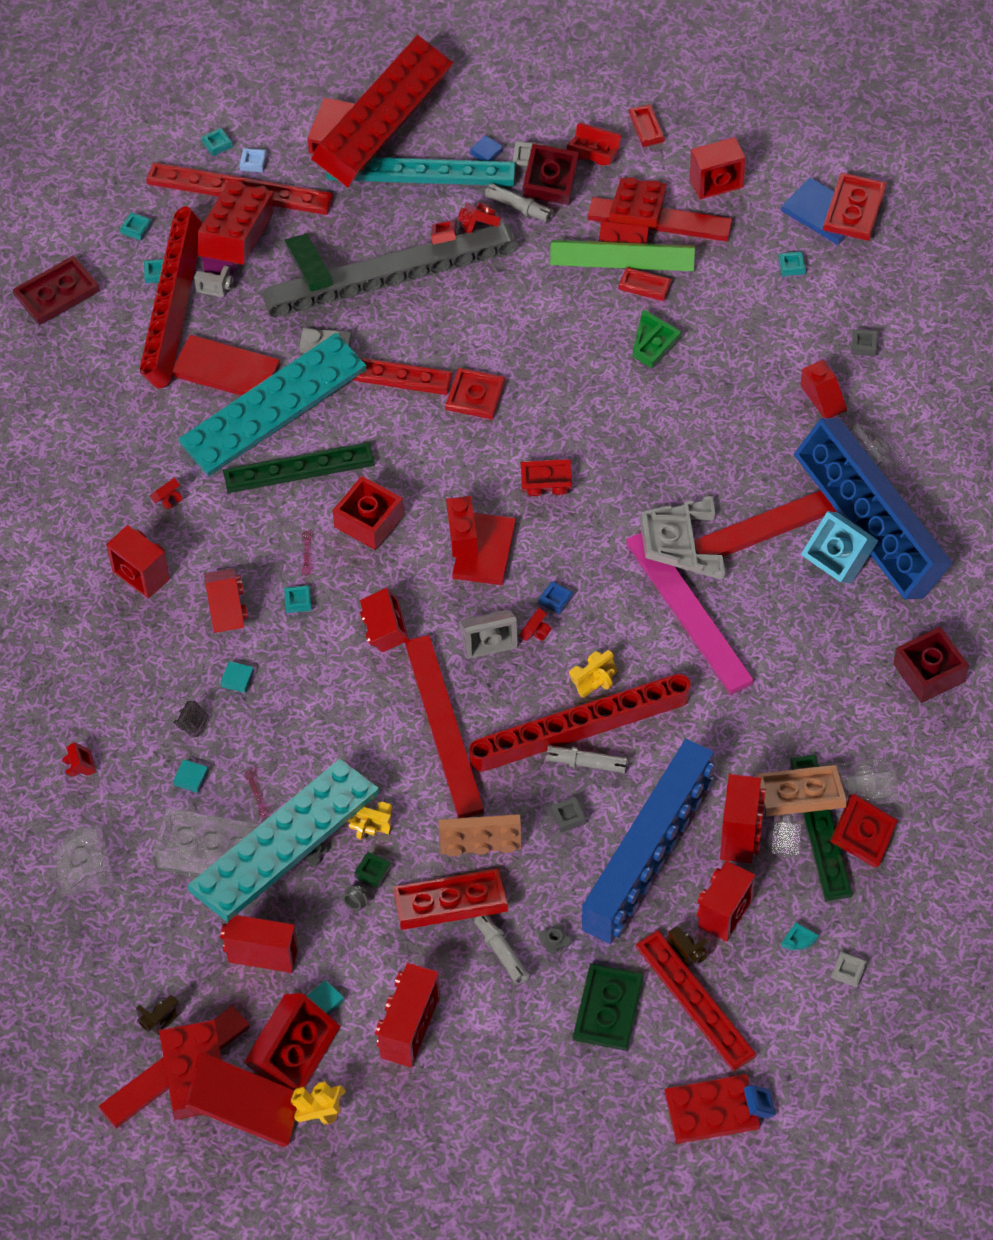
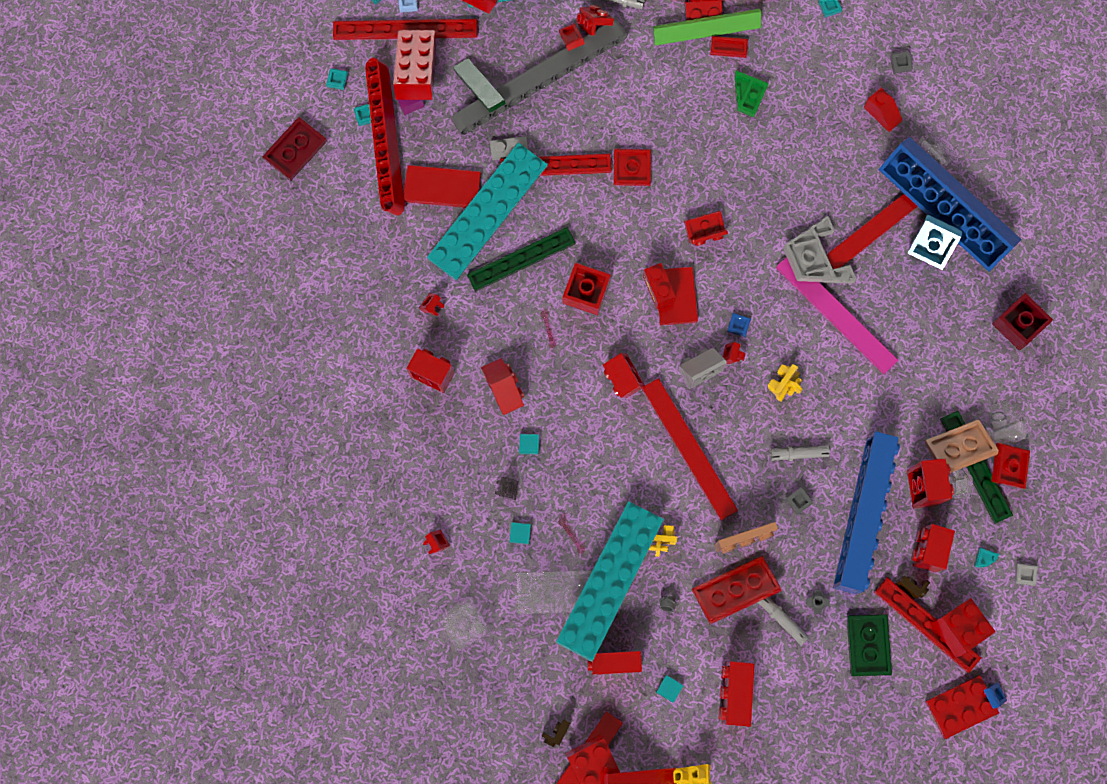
camera: 15 degrees left, 20 degrees up
(214, 284) = (411, 118): light grey bracket -> none
(292, 1042) = (658, 732): red slope -> none
(297, 599) = (553, 369): teal tile -> none
(372, 869) = (674, 578): dark green plate -> none
(571, 731) = (793, 418): red beam -> none
(738, 1005) = (963, 627): none -> red brick

